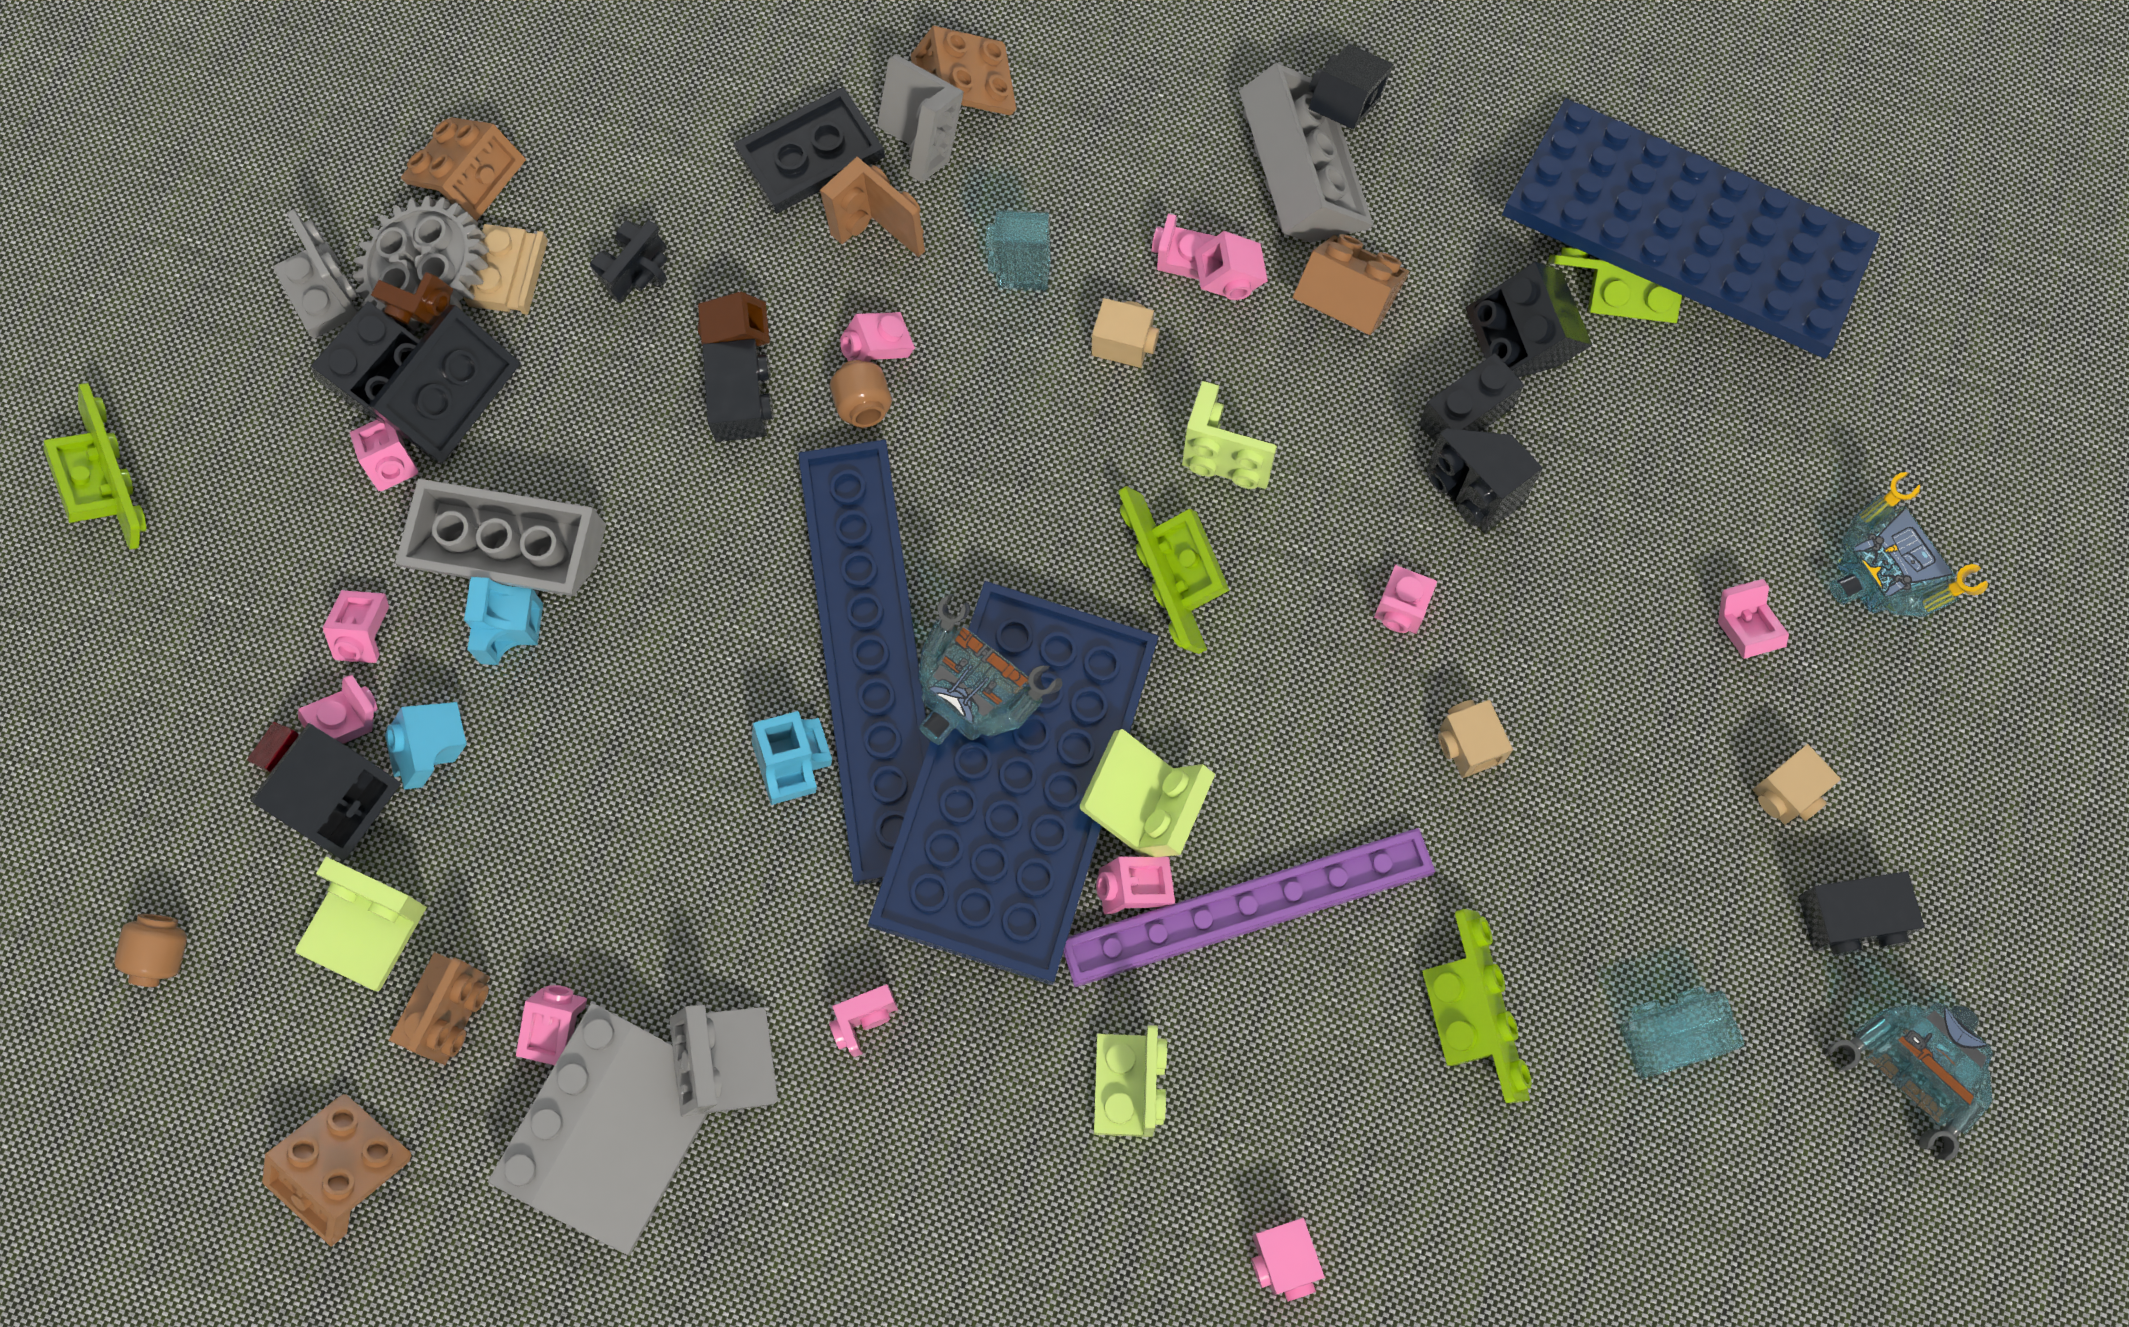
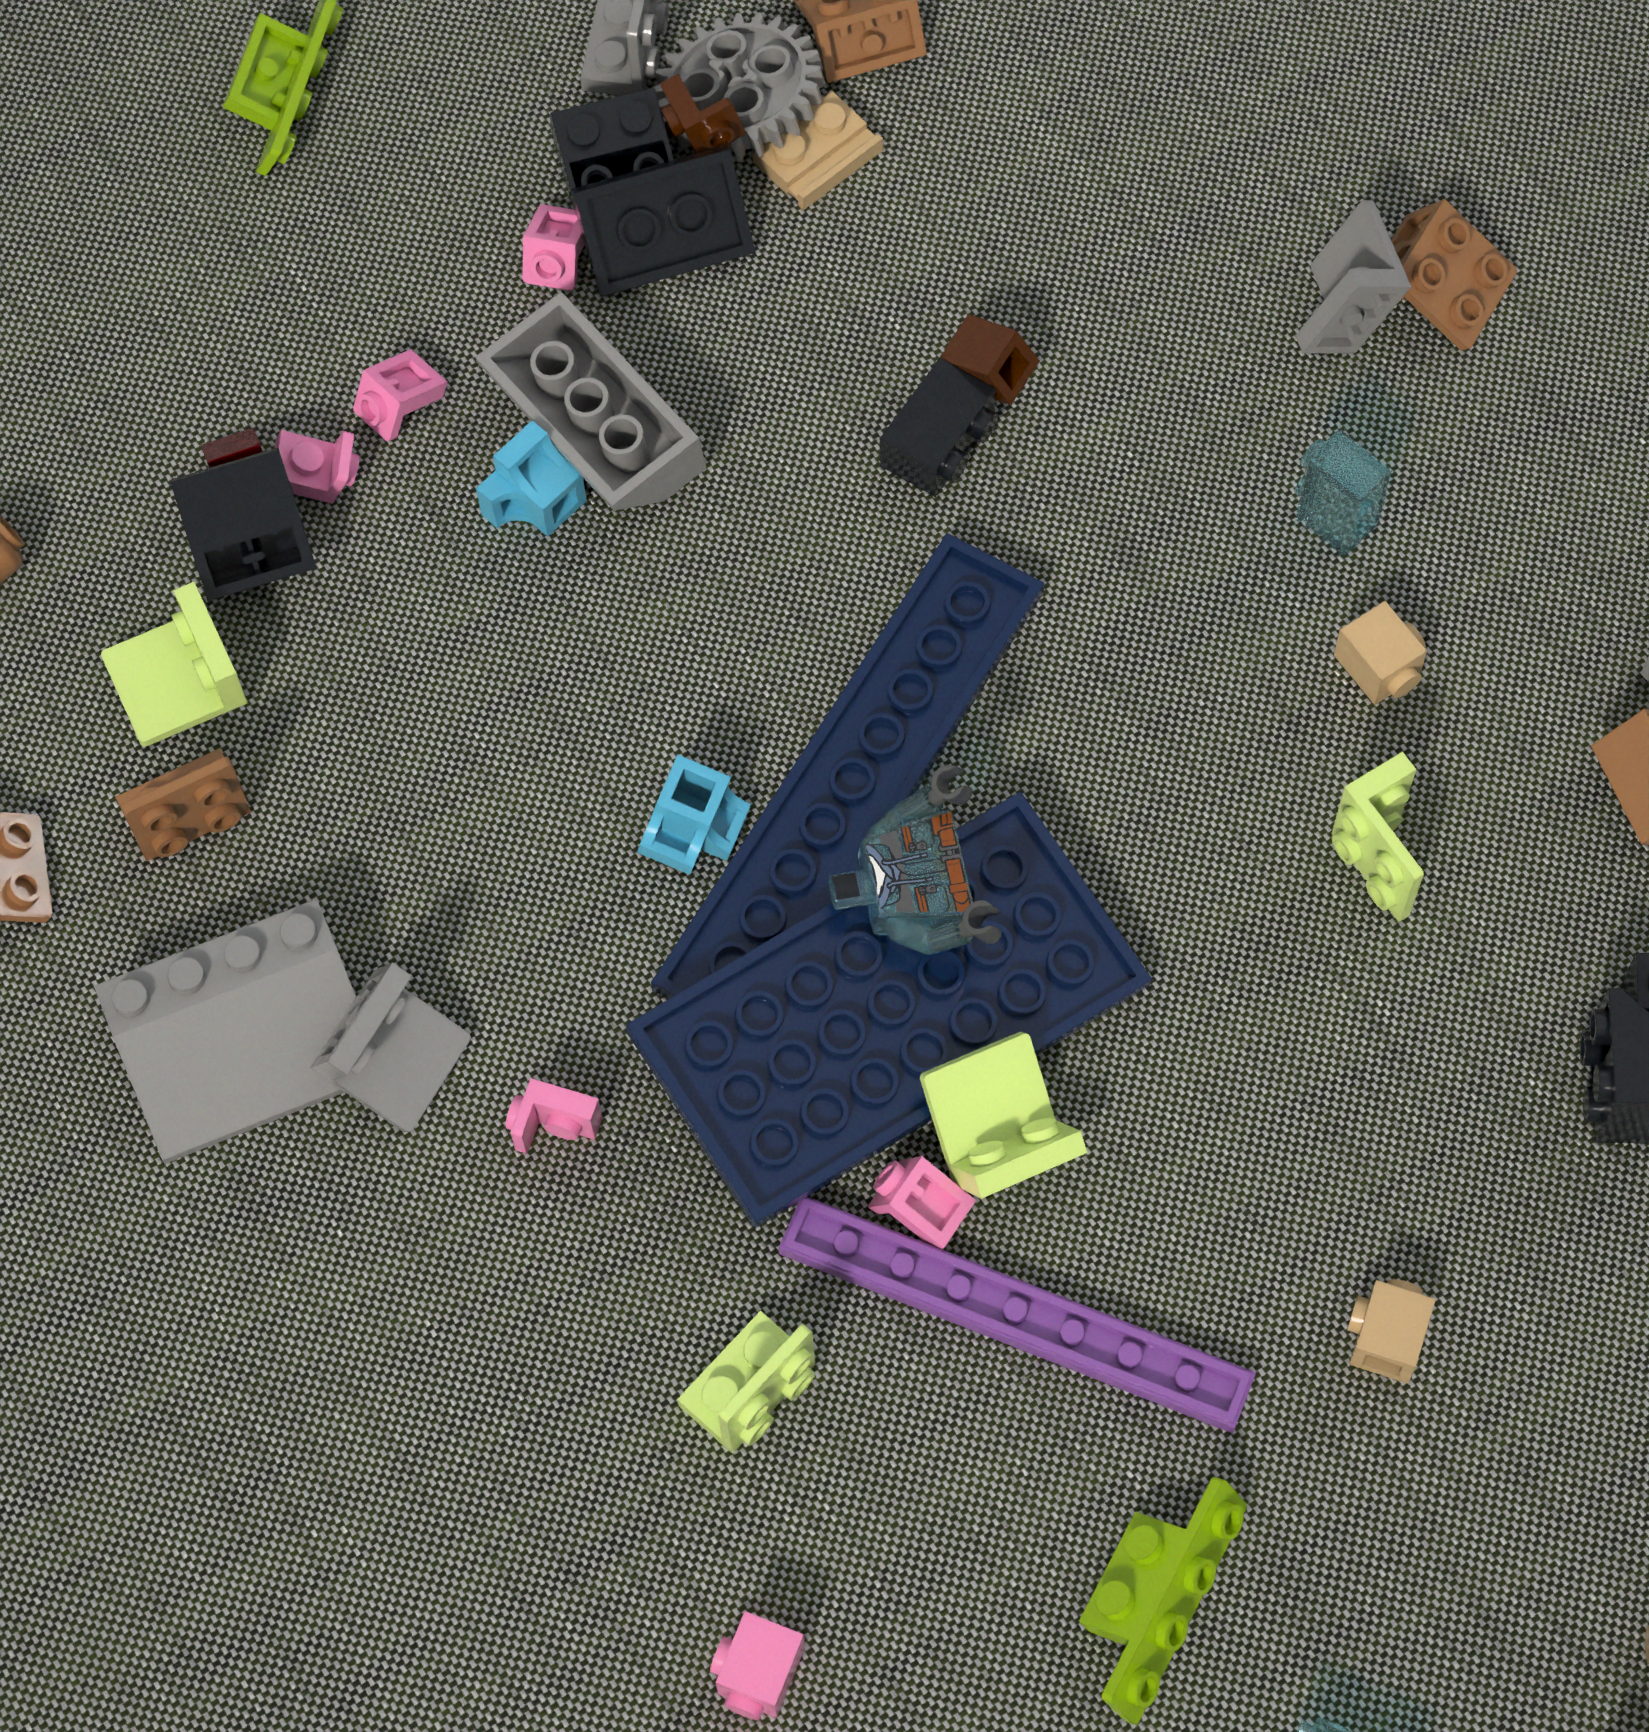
camera: 40 degrees right, 5 degrees down
(424, 738) = (369, 544): medium azure brick -> none
(548, 1023) = (265, 889): bright pink bracket -> none
(636, 264) = (945, 232): black hips -> none
(808, 149) = (1216, 240): black plate -> none
(860, 393) = (1058, 519): medium nougat head -> none
(864, 194) = (1220, 320): medium nougat bracket -> none
(876, 337) = (1122, 477): bright pink bracket -> none
(1177, 248) = (1521, 615): bright pink bracket -> none
(1180, 563) = (1233, 926): lime bracket -> none
(1230, 266) = (1552, 666): bright pink brick -> none
(1405, 600) = (1444, 1141): bright pink bracket -> none

